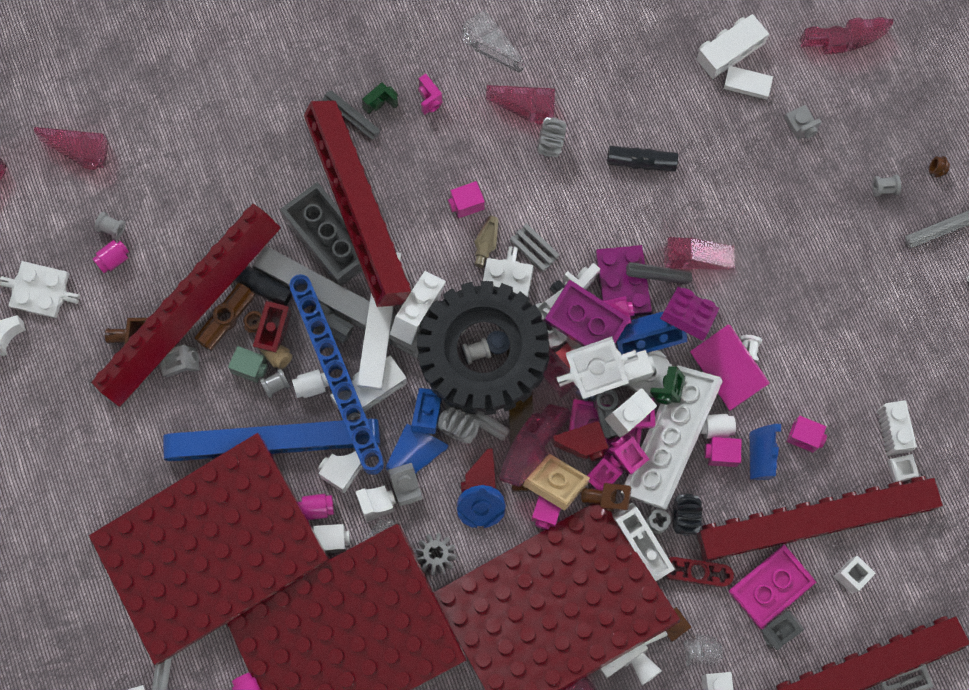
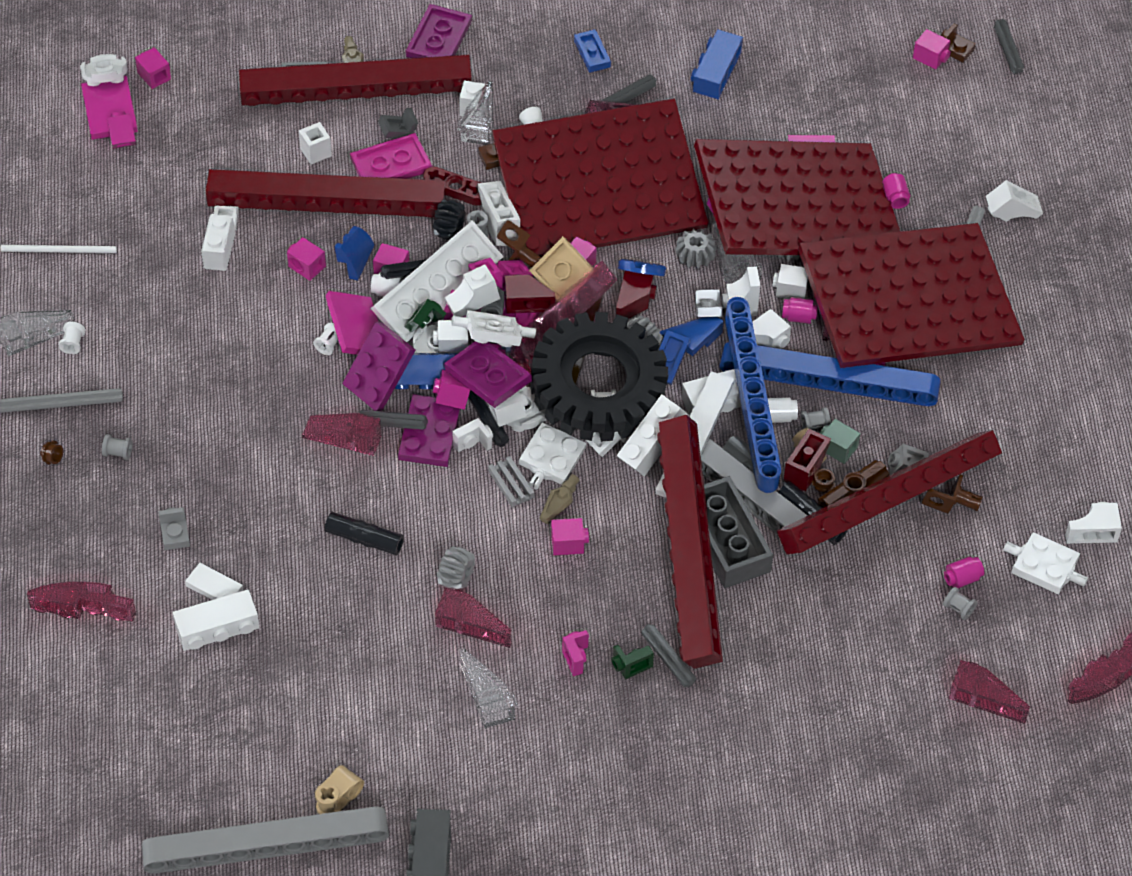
camera: 160 degrees left, 20 degrees down
(706, 436) = (400, 269): none -> black axle

